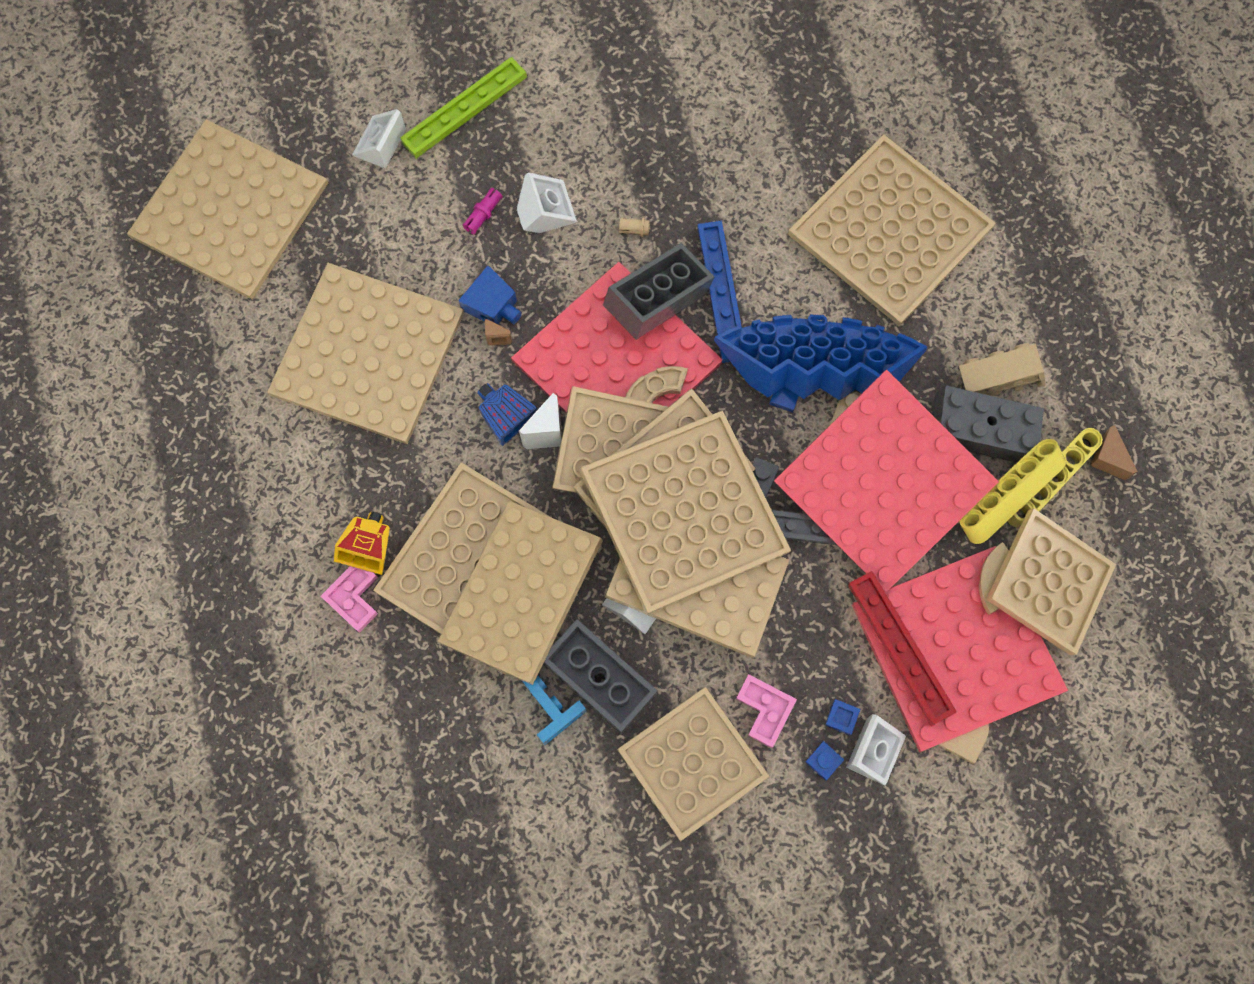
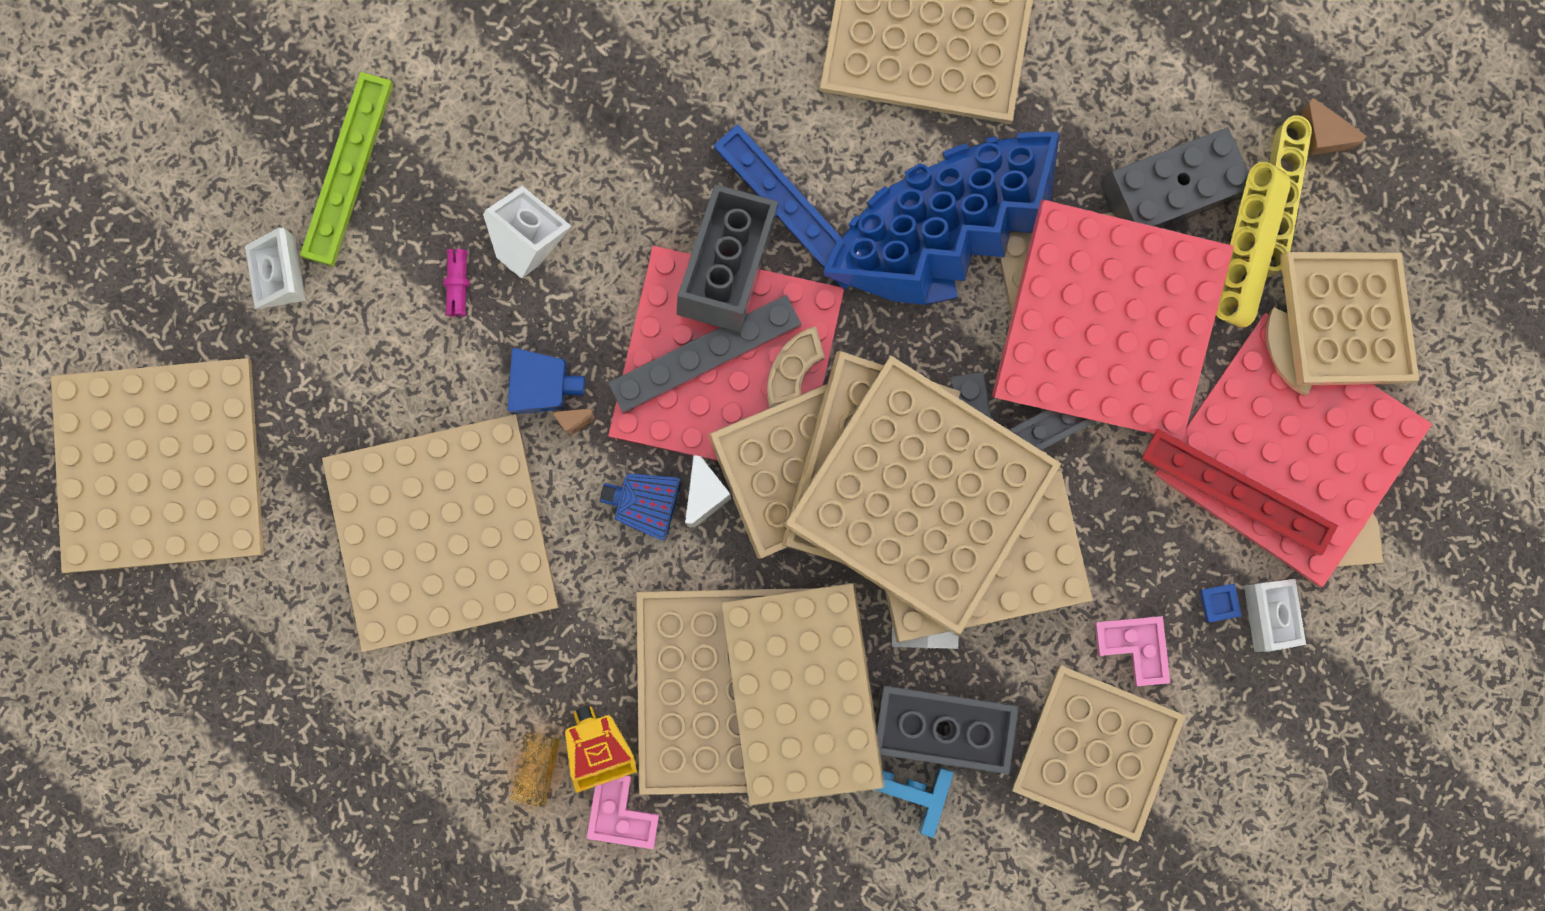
camera: 35 degrees left, 10 degrees up
(319, 531) = (535, 769): none -> clear yellow brick
(605, 343) = (704, 355): none -> dark grey plate
(634, 226) = (642, 191): tan pin -> none
(824, 760) = (1229, 660): blue plate -> none
(1003, 370) = (1157, 110): tan wedge -> none

